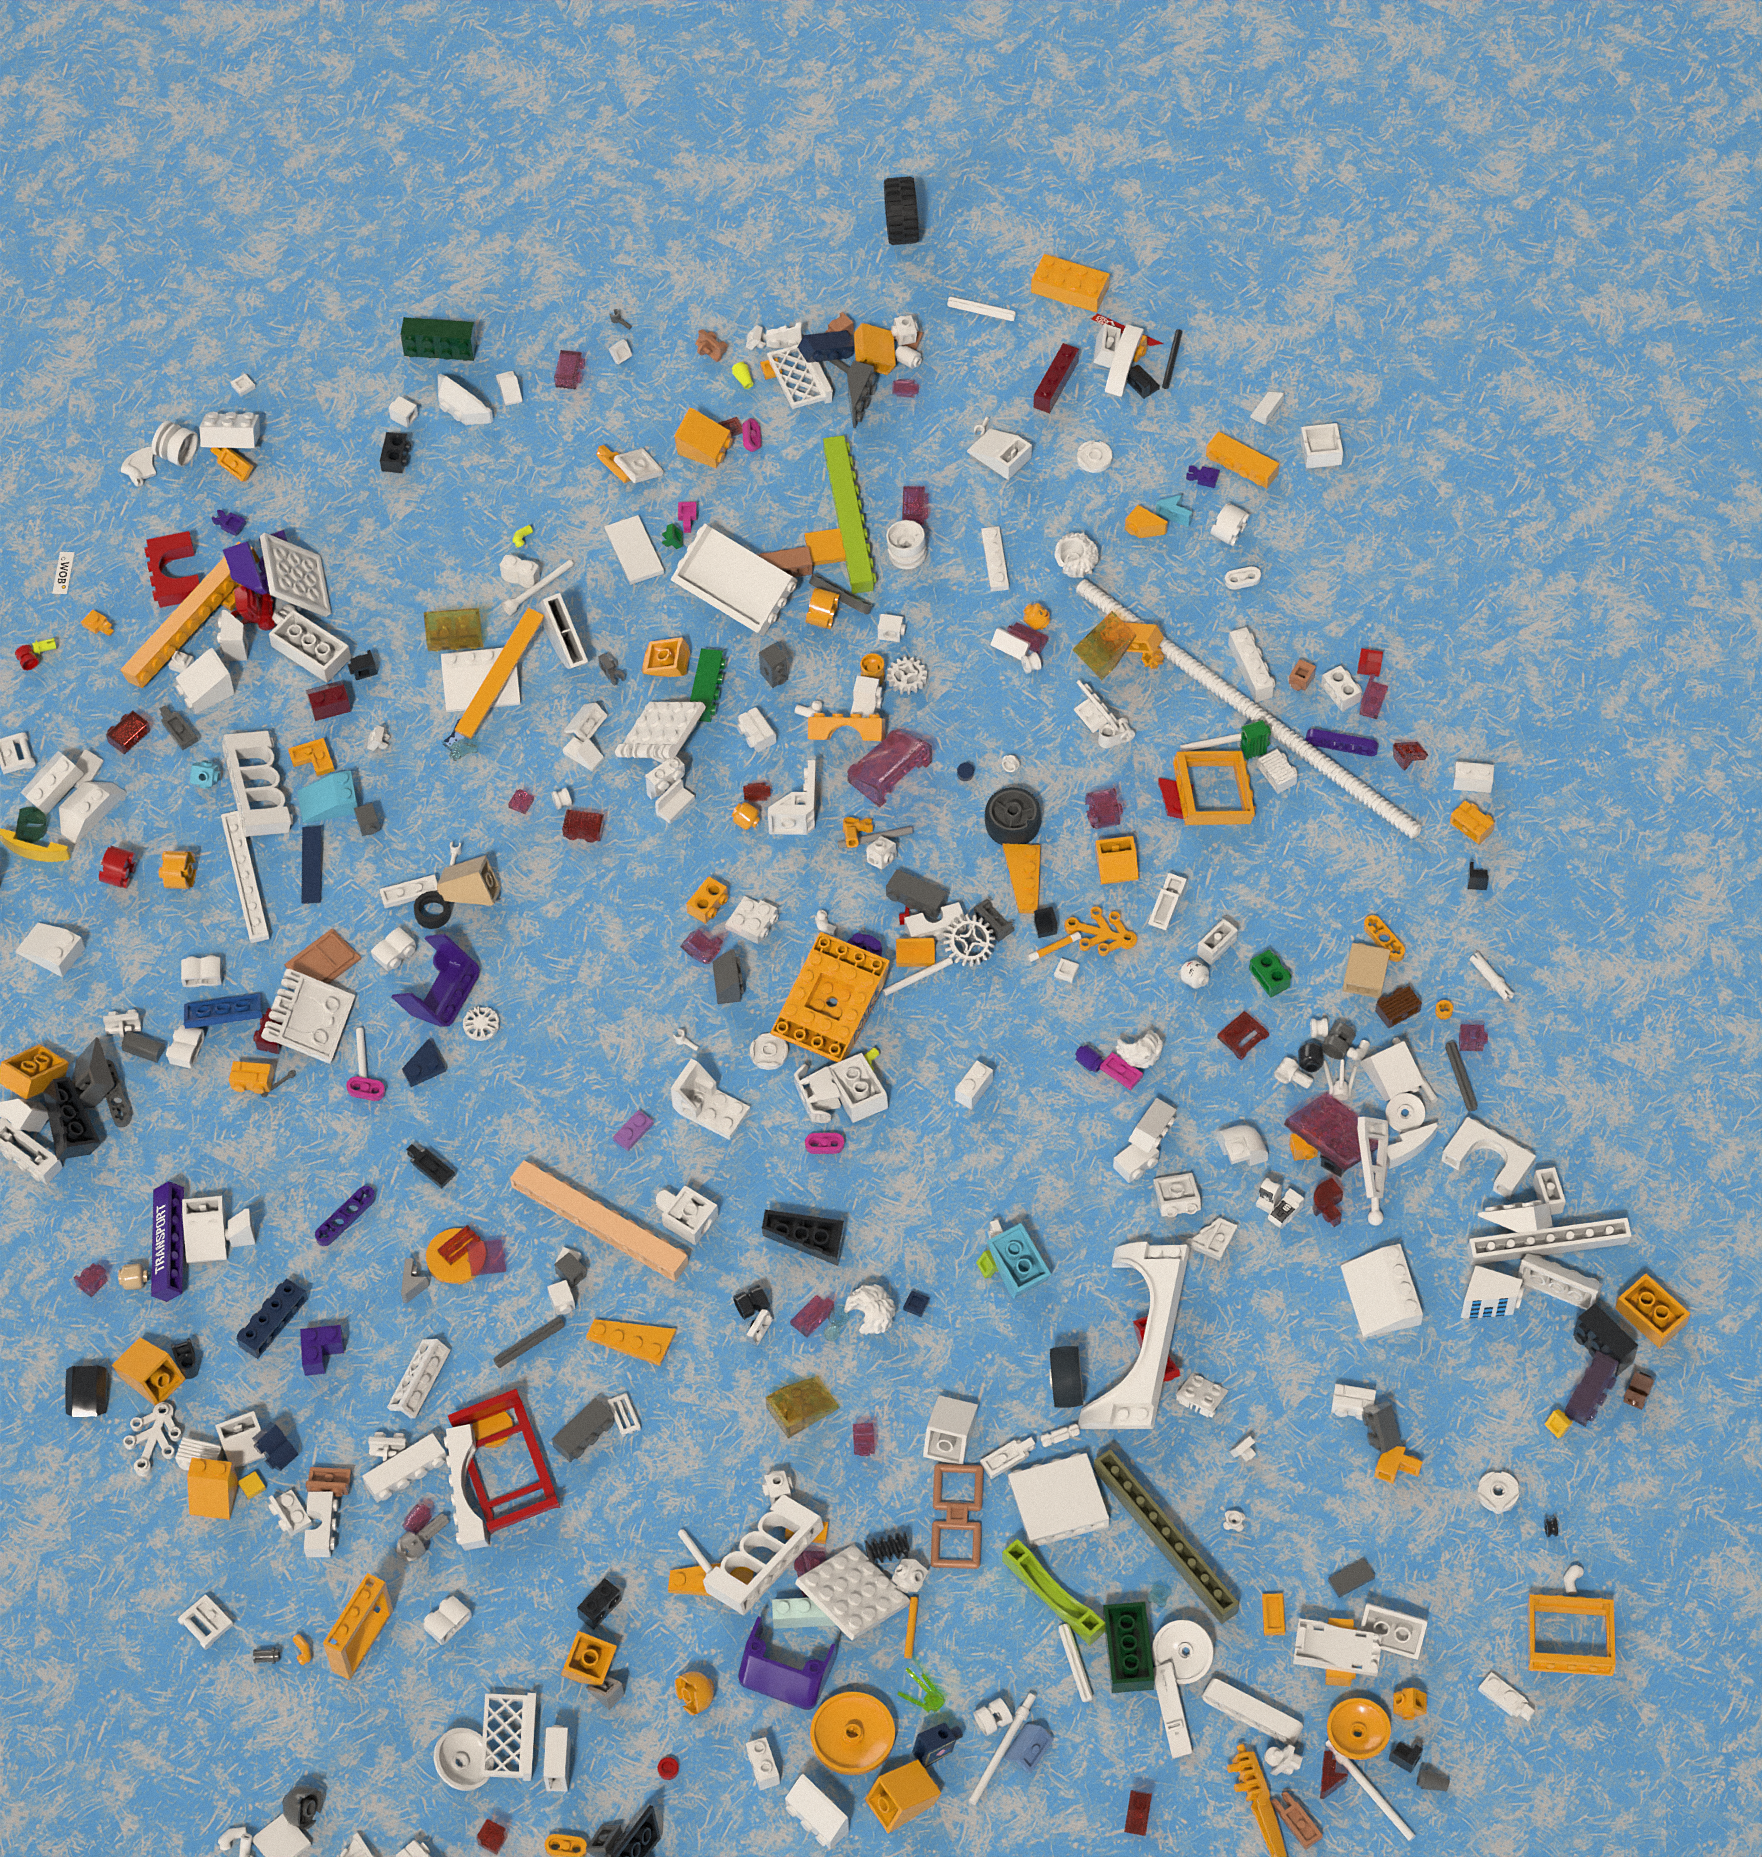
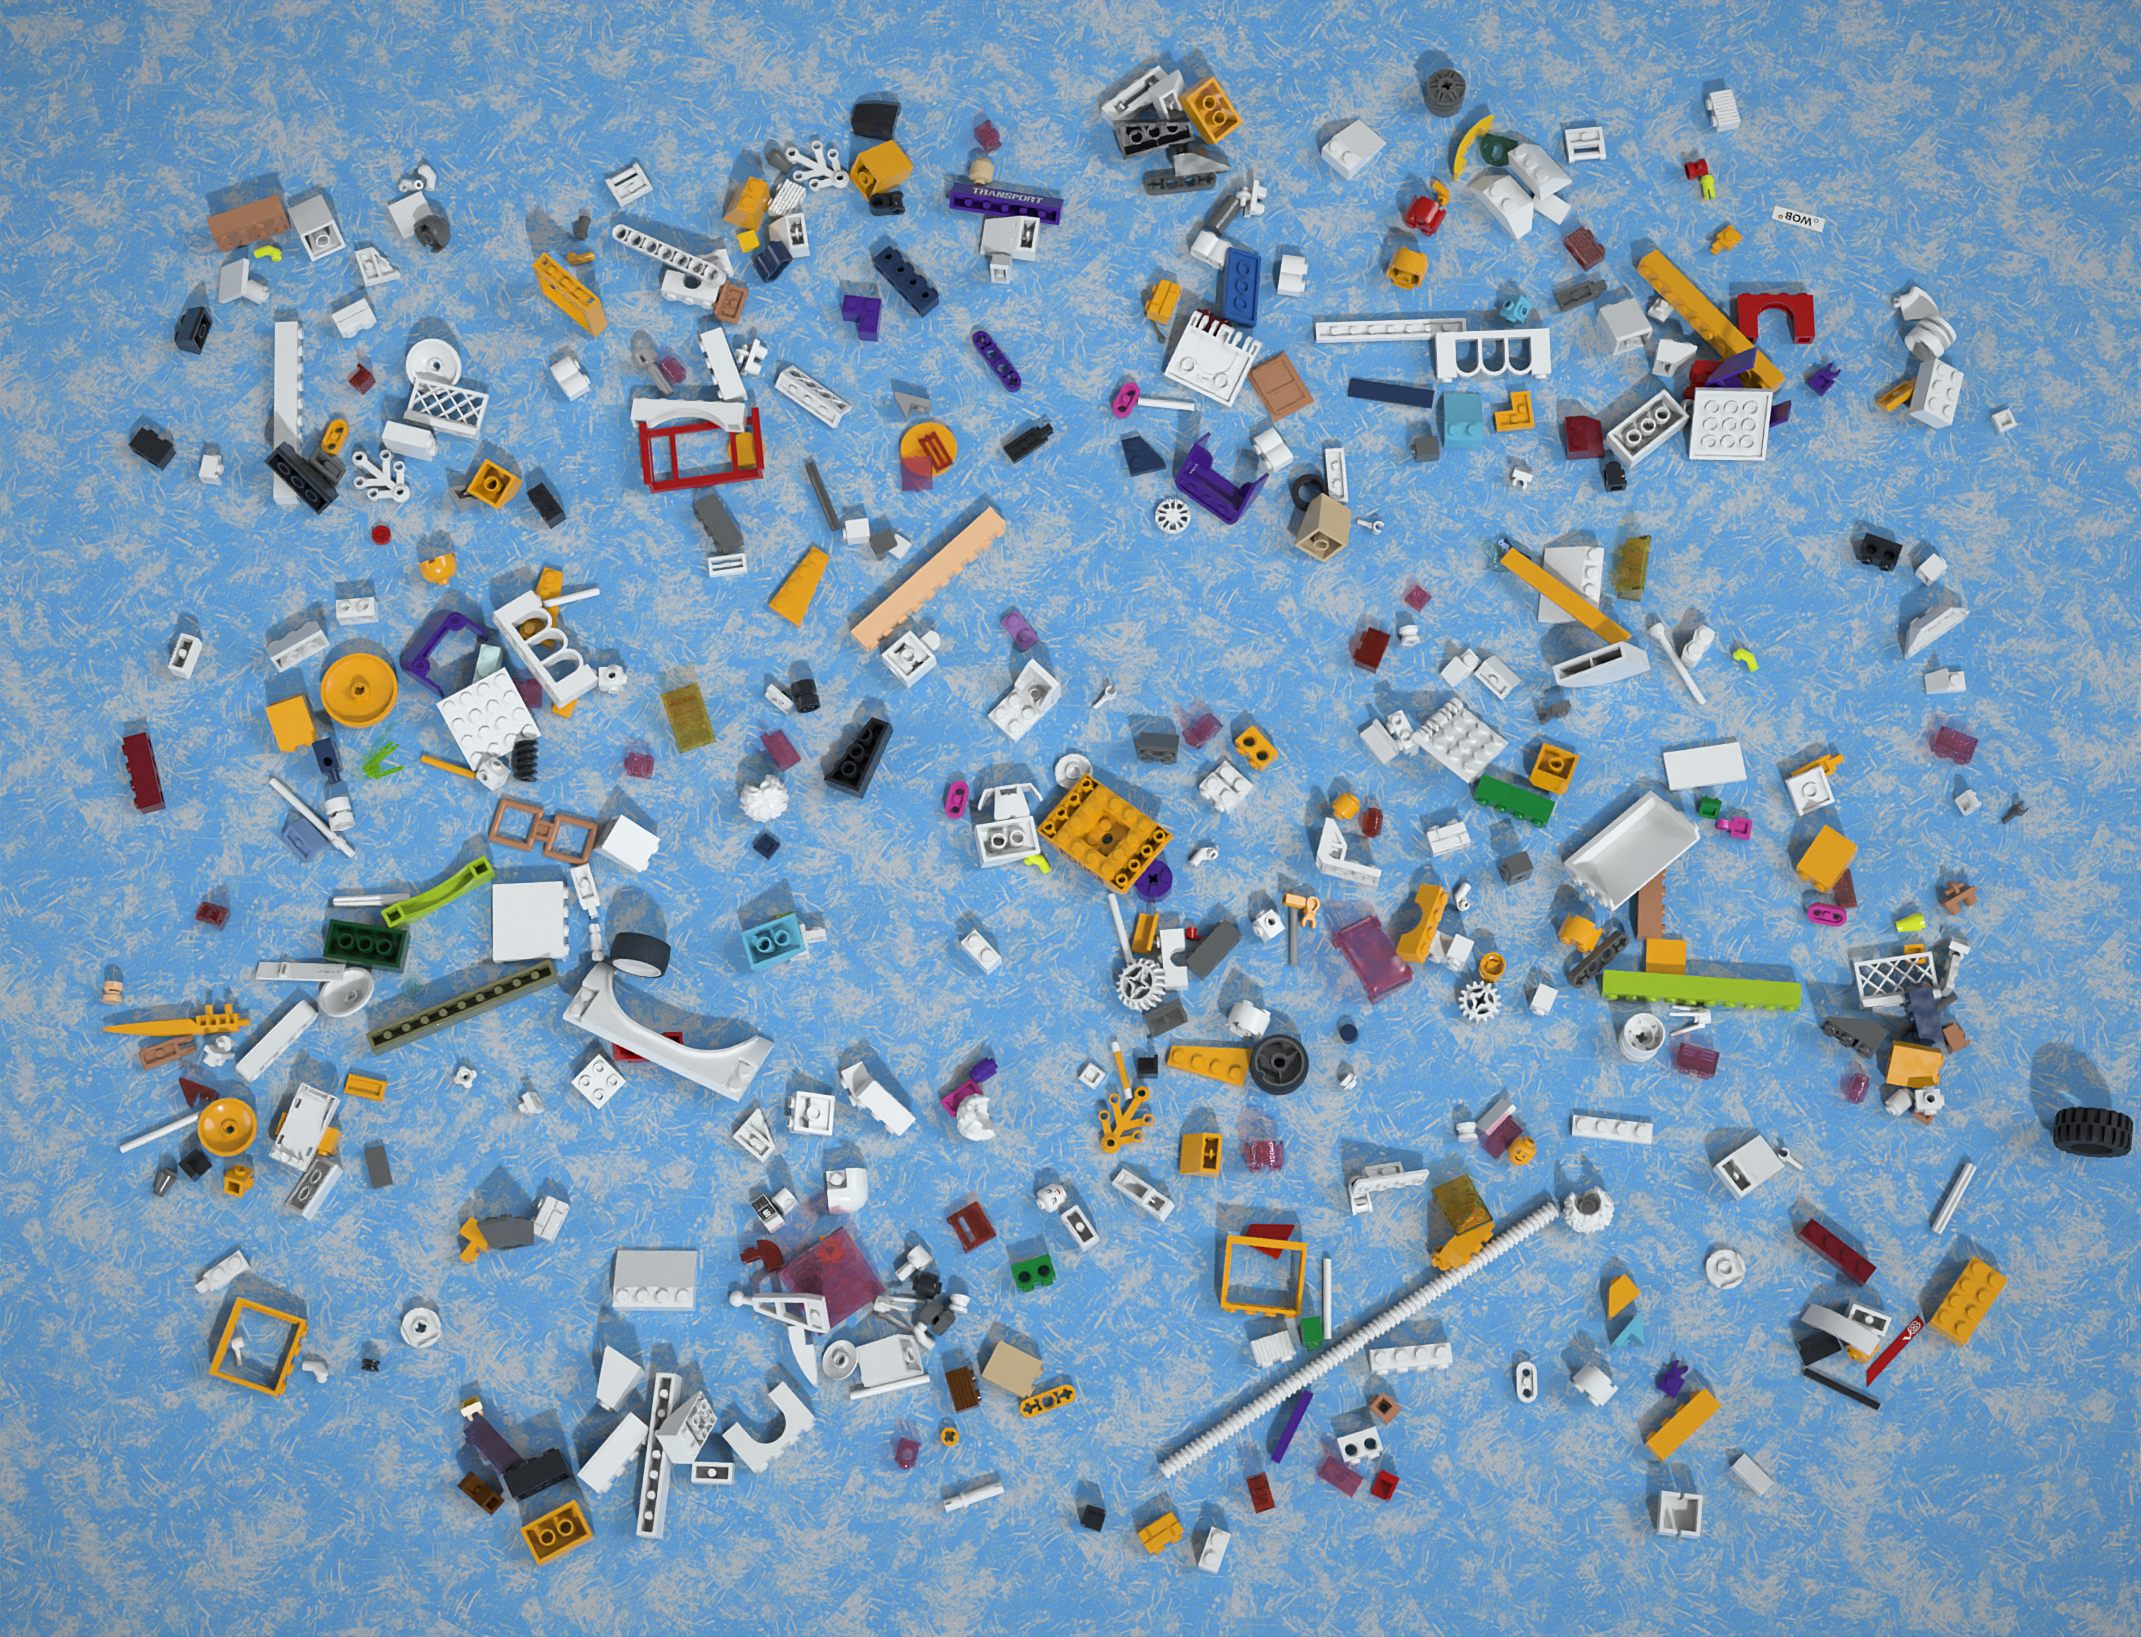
camera: 105 degrees right, 15 degrees up
(87, 862) = (1443, 193): none -> light orange arm
(150, 1478) = (778, 160): none -> dark grey cone
(287, 1538) = (676, 258): none -> white beam
(438, 339) = (2016, 618): dark green brick -> none
(602, 1783) = (382, 479): none -> white plant
(873, 511) = (1699, 1015): none -> white plant
(979, 847) = (1248, 1021): none -> white brick
(1461, 1076) = (869, 1430): dark grey axle -> none

